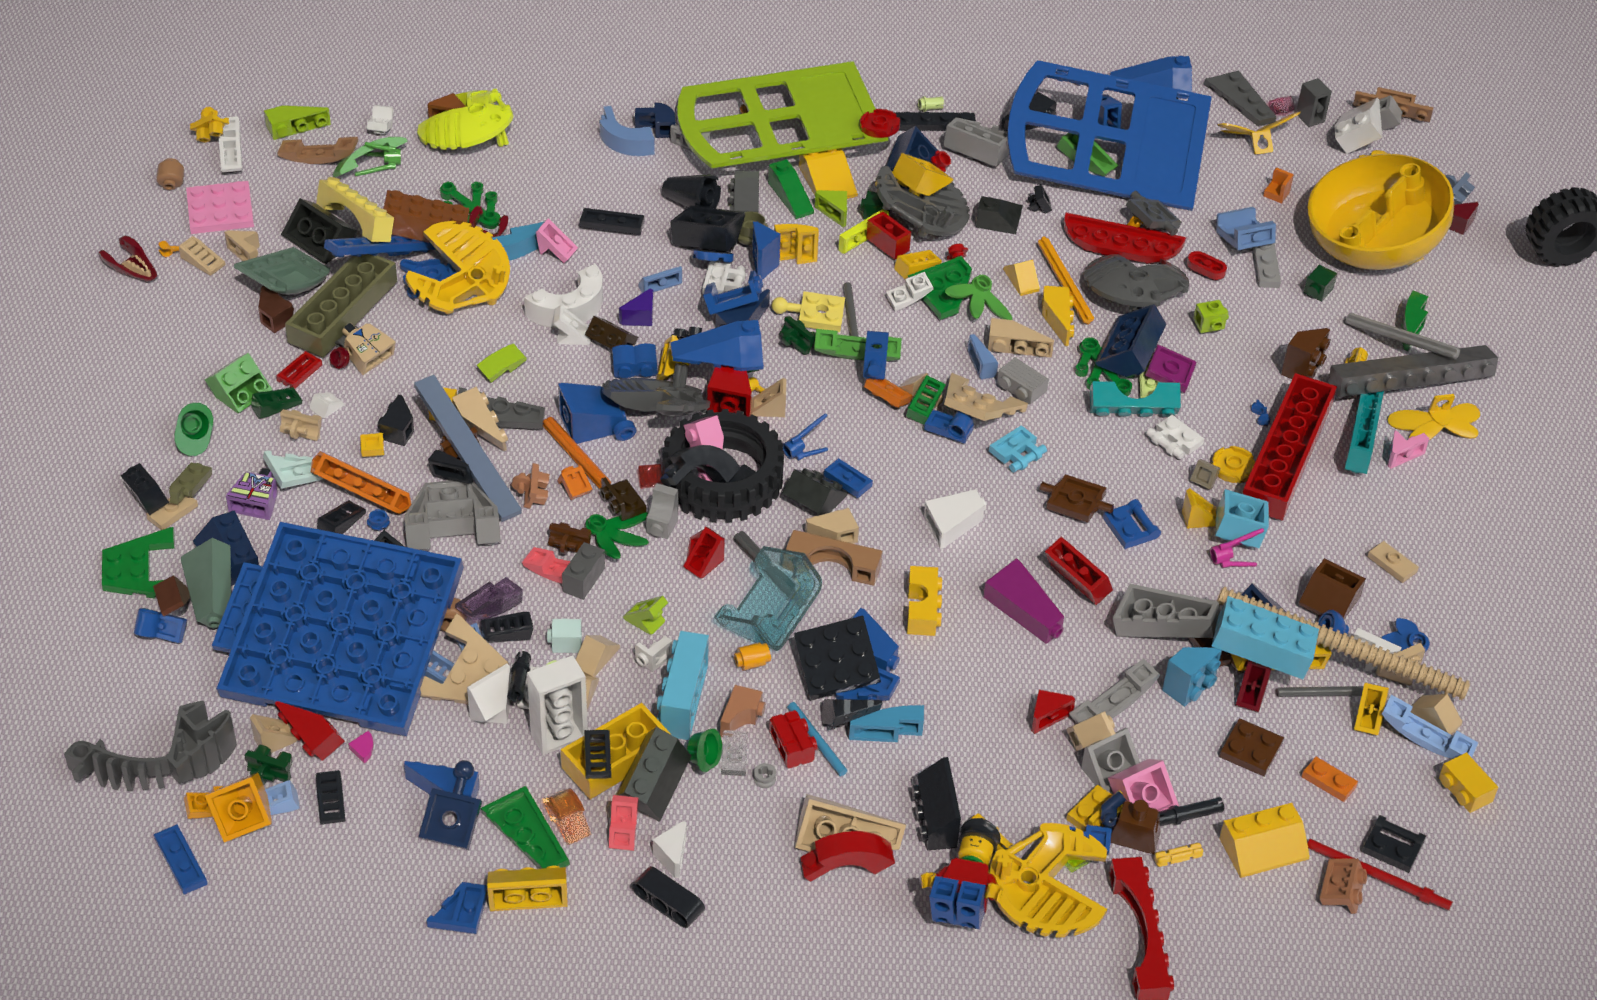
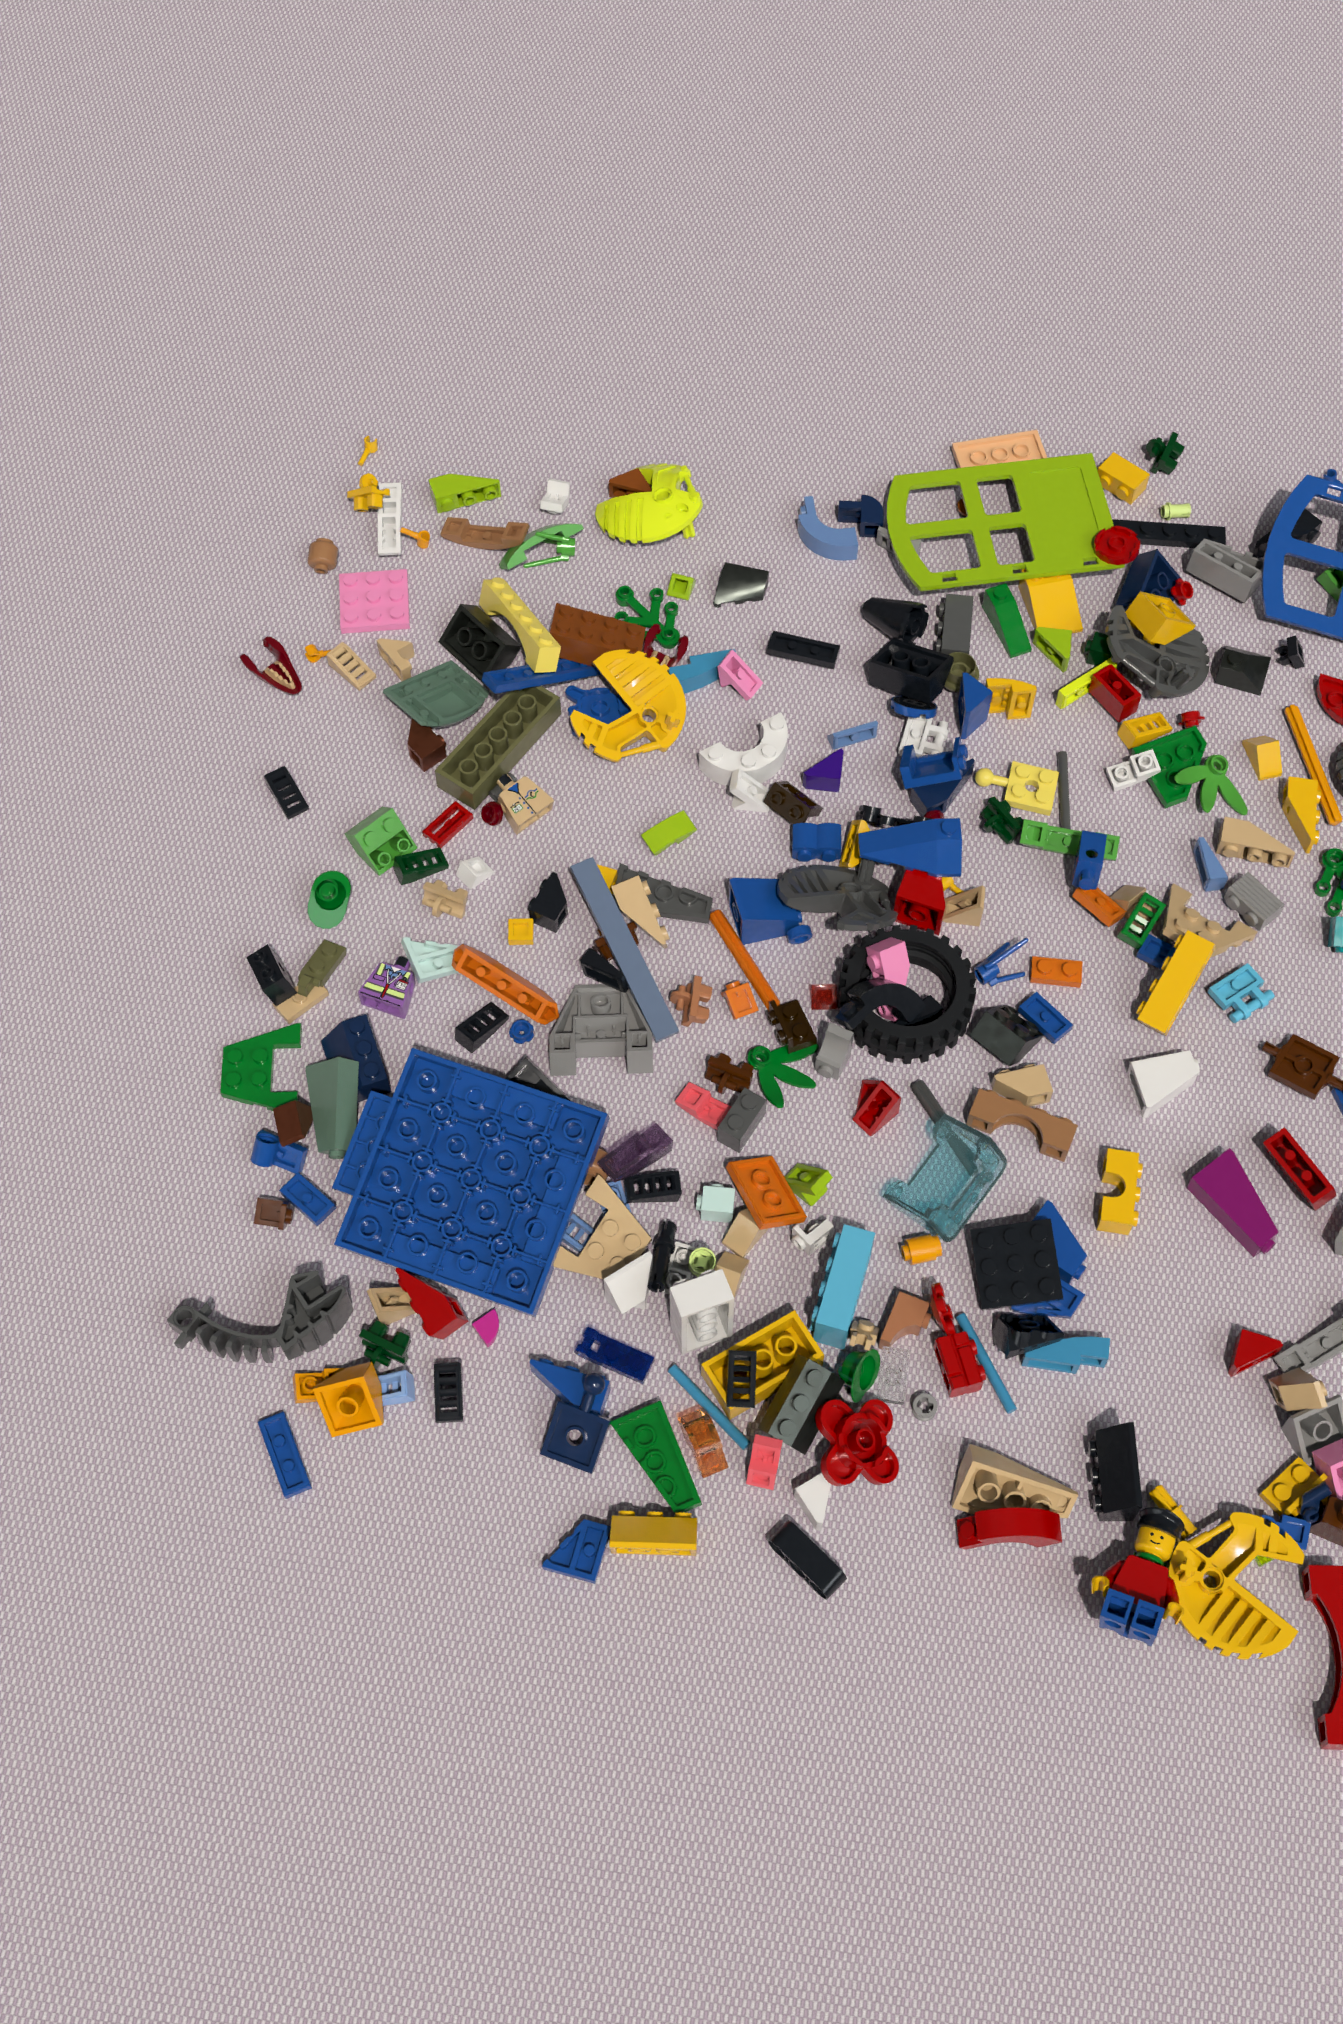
camera: 10 degrees right, 15 degrees up
(138, 348) = (279, 779): none -> black slope
(157, 671) = (273, 1212): none -> reddish brown bracket
(189, 660) = (307, 1199): none -> blue plate
(207, 93) = (370, 447): none -> yellow hand
(261, 156) = (422, 537): none -> light orange hand
(483, 758) = (615, 1356): none -> clear blue plate
(498, 181) = (681, 586): none -> lime slope
(552, 176) = (741, 584): none -> pearl dark grey slope
(562, 784) = (709, 1407): none -> dark azure bar
(609, 621) = (766, 1192): none -> orange tile
(705, 800) = (857, 1442): none -> red plant
(706, 720) = (863, 1333): none -> tan plate
(769, 689) = (941, 1310): none -> red dish
(772, 64) = (999, 449): none -> light nougat plate
(855, 445) = (1056, 971): none -> orange plate
(883, 81) = (1122, 478): none -> yellow brick
(919, 62) = (1162, 450): none -> dark green hips
(958, 439) = (1176, 982): none -> yellow brick

